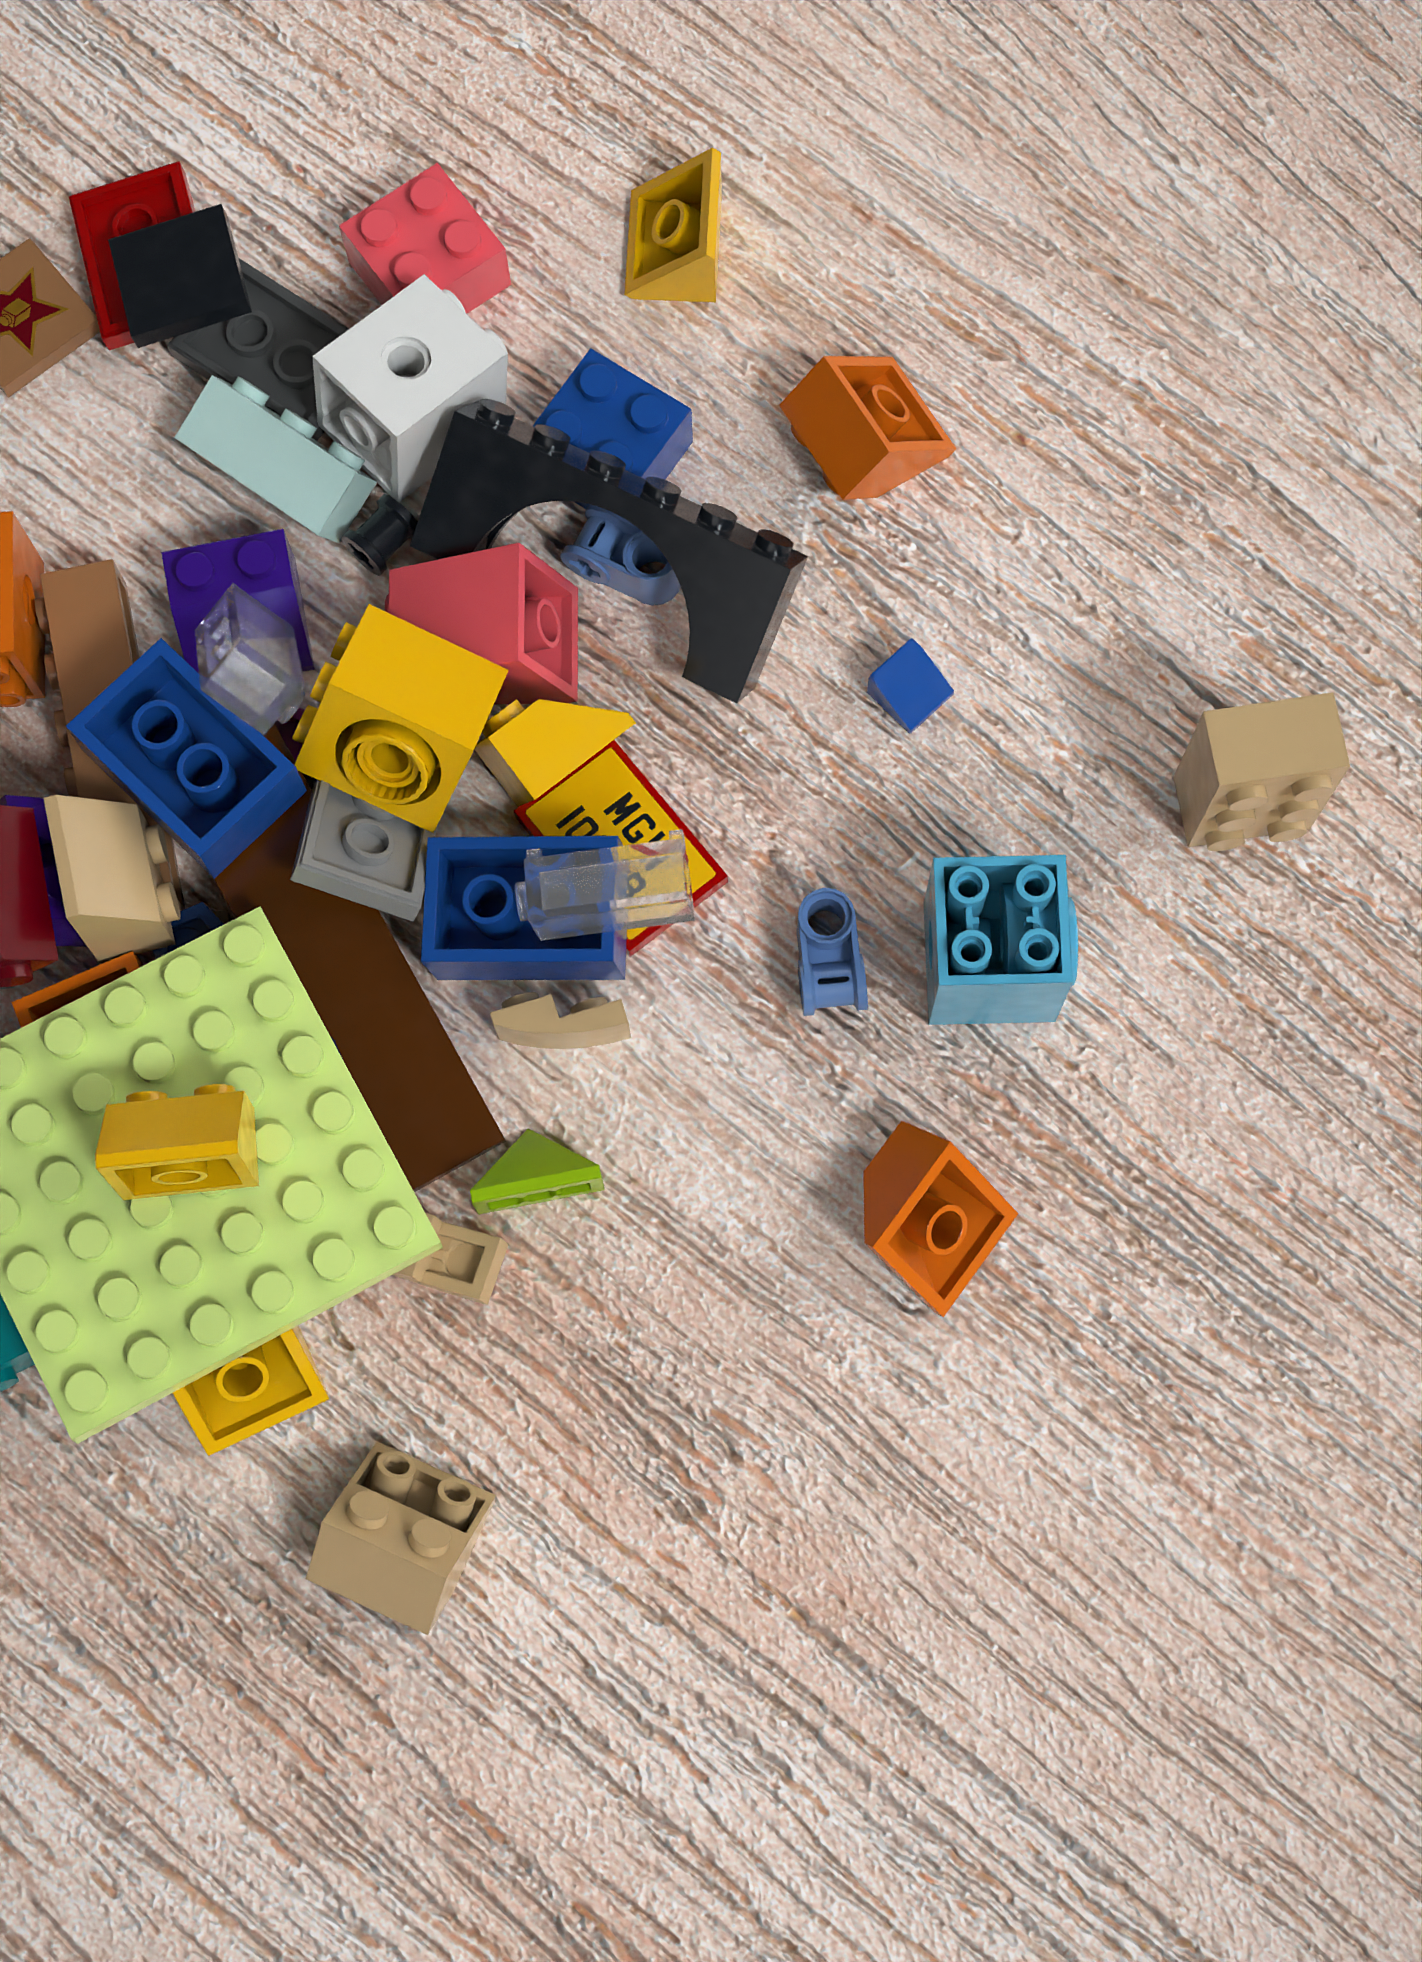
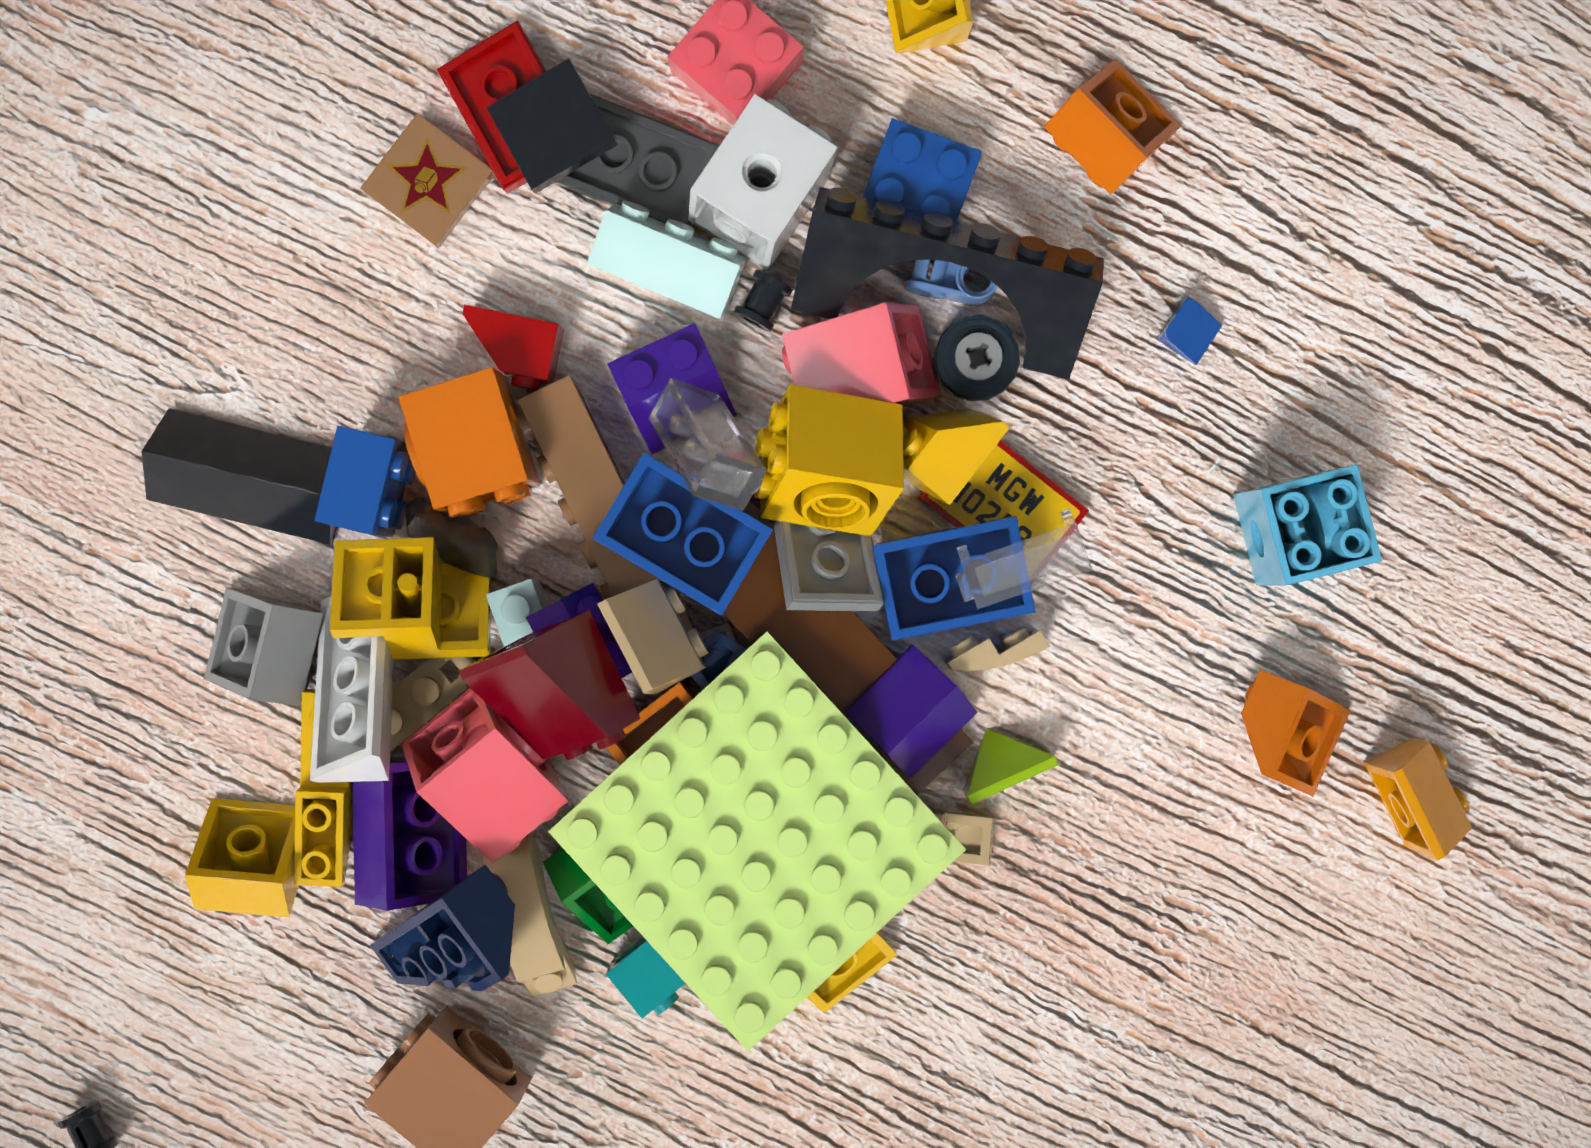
camera: 15 degrees left, 15 degrees up
(66, 517) = (518, 345): none -> red slope
(179, 1143) = (771, 835): yellow slope -> none
(399, 1537) = (977, 1041): tan slope -> none
(430, 1072) = (911, 711): none -> dark purple slope
(630, 681) = (967, 372): none -> black wheel
(831, 965) = (1180, 558): medium blue piece -> none
(1083, 1336) = (1420, 797): none -> light orange slope
(1260, 771) = (1480, 357): tan brick -> none

